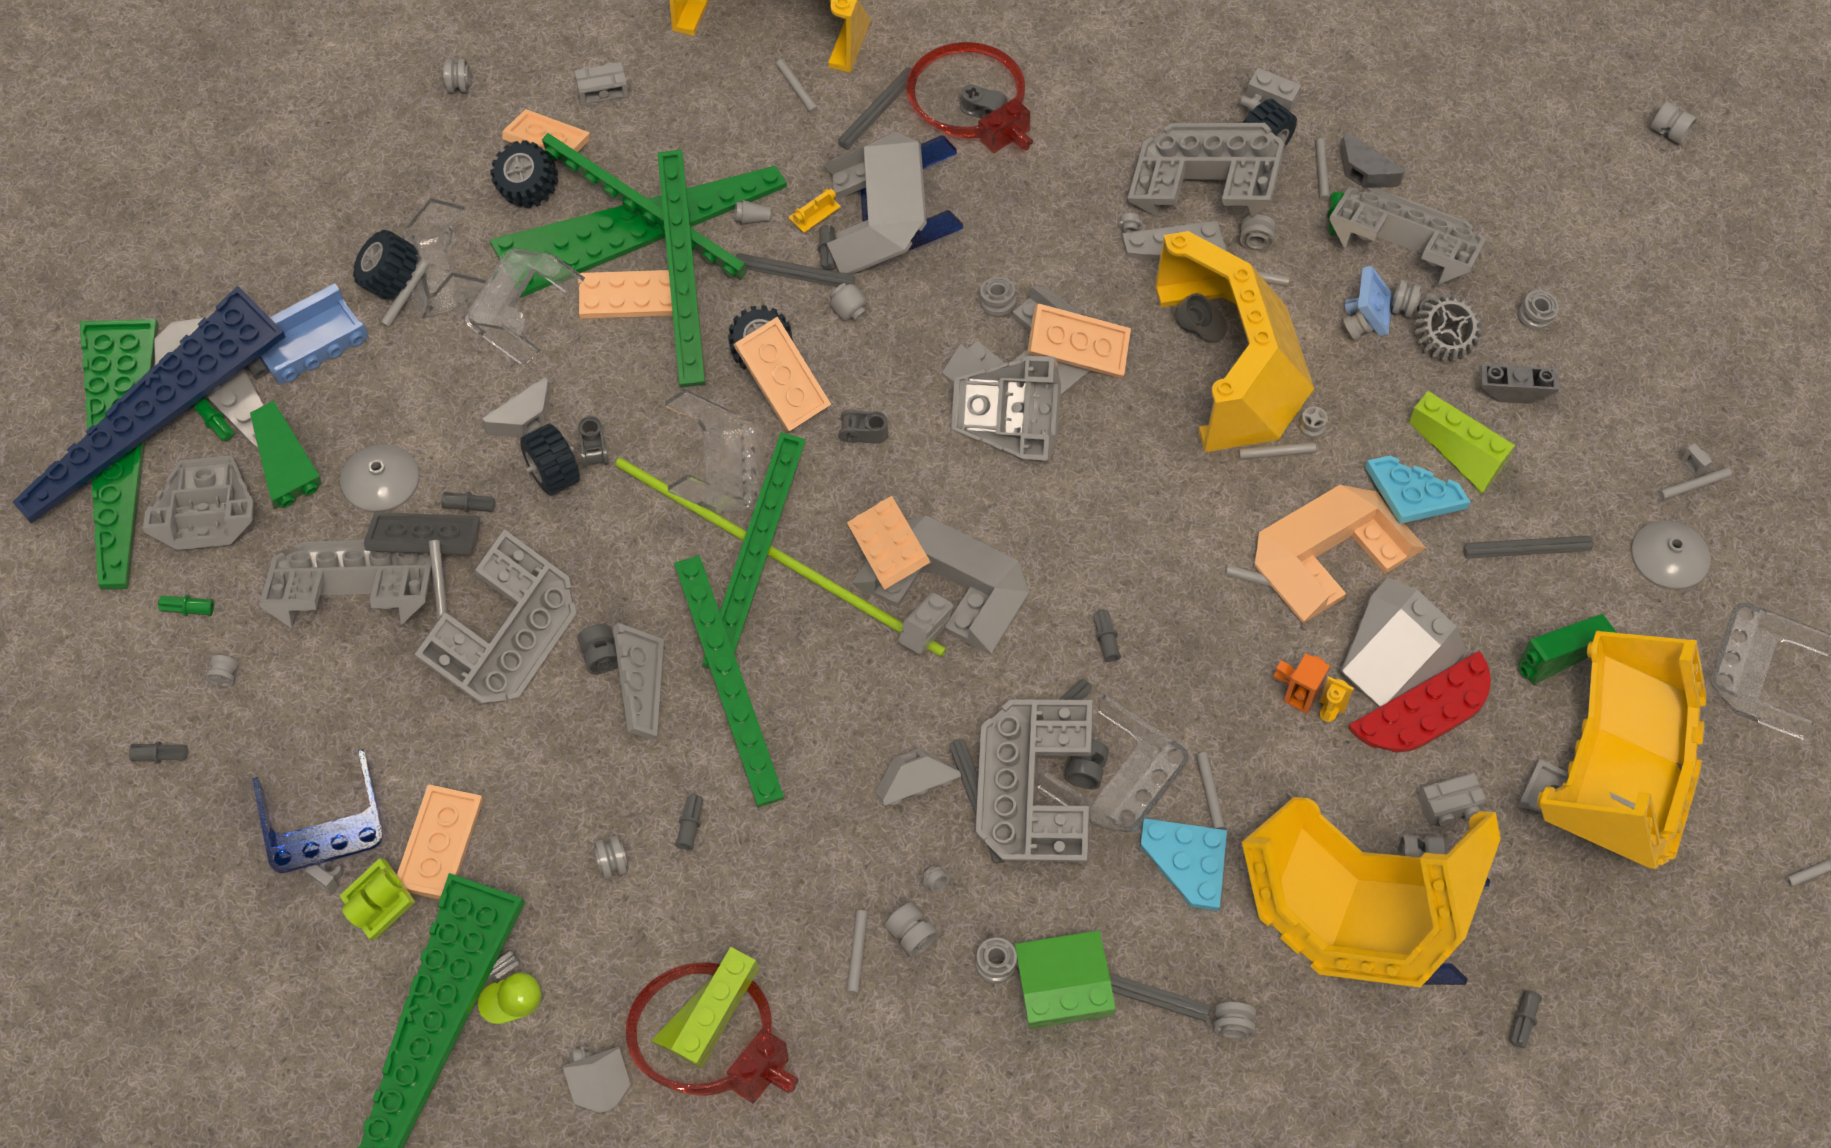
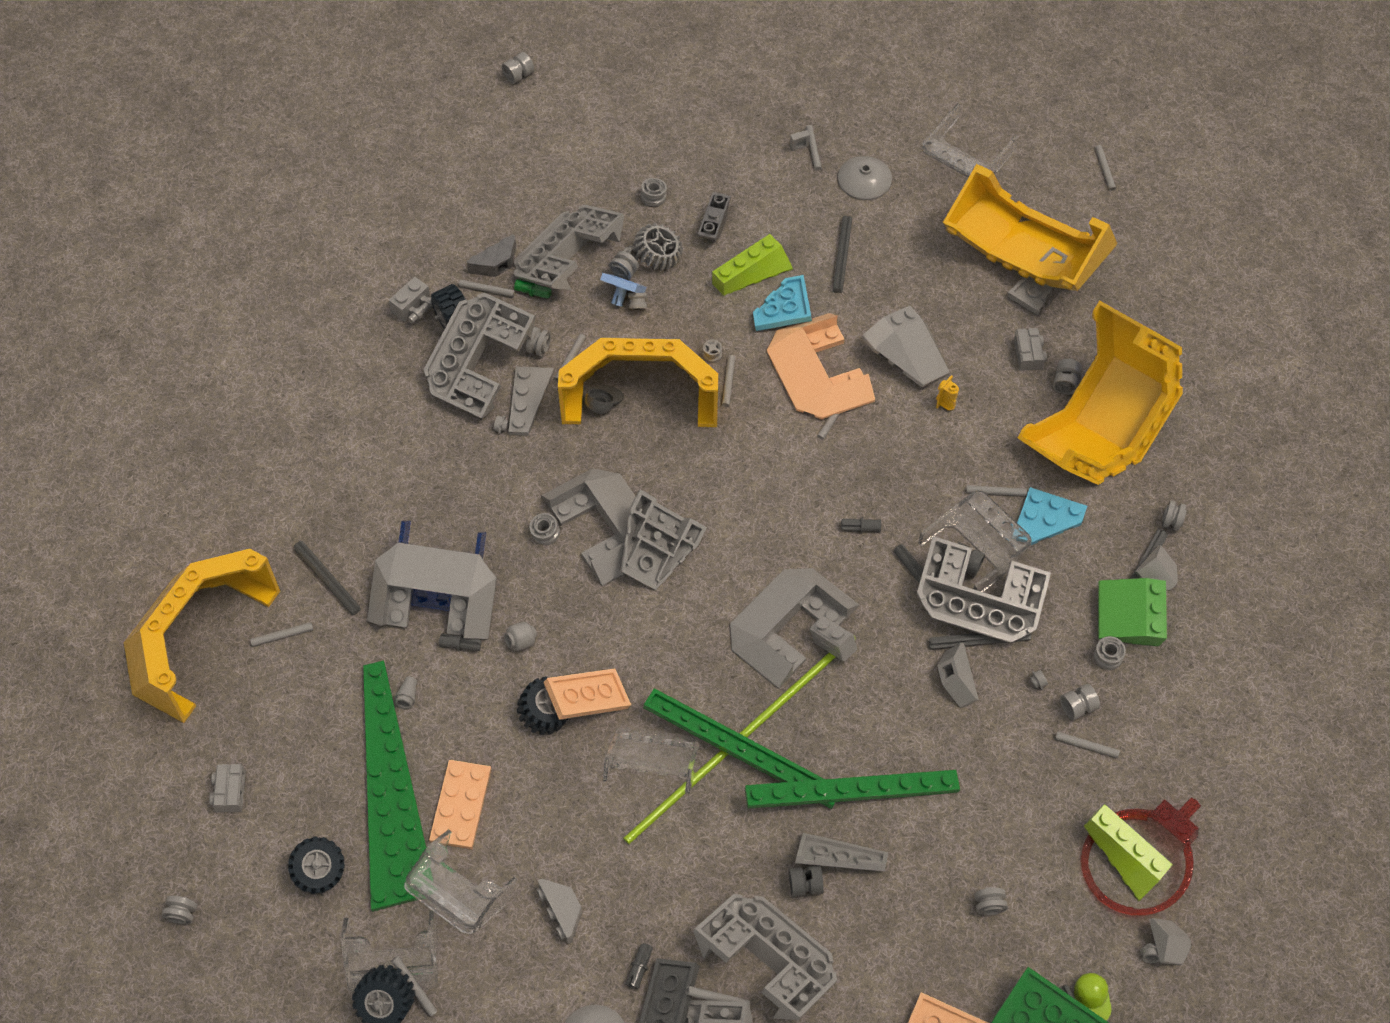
camera: 75 degrees left, 0 degrees up
(534, 127) = (274, 843): light nougat plate -> none
(550, 459) = (624, 887): black wheel -> none
(592, 445) = (608, 856): dark grey piece -> none
(635, 201) = (378, 777): green plate -> none
(681, 269) = (460, 750): green plate -> none
(689, 822) = (965, 841): dark grey axle -> none
(795, 270) = (474, 672): dark grey axle -> none
(815, 211) = (418, 644): yellow hinge -> none
(862, 427) = (640, 652): dark grey piece -> none
(888, 542) = (760, 648): light nougat plate -> none
(982, 103) = (351, 498): dark grey piece -> none
(996, 129) = (378, 482): clear red brick -> none
(1079, 340) = (609, 479): light nougat plate -> none
(1142, 1012) = (1159, 567): none -> light grey slope
(1304, 682) = (931, 407): orange brick -> none
(1428, 708) = (955, 344): red plate -> none
(1525, 1018) = (1189, 353): dark grey axle -> none
(1560, 648) = (931, 253): green slope -> none

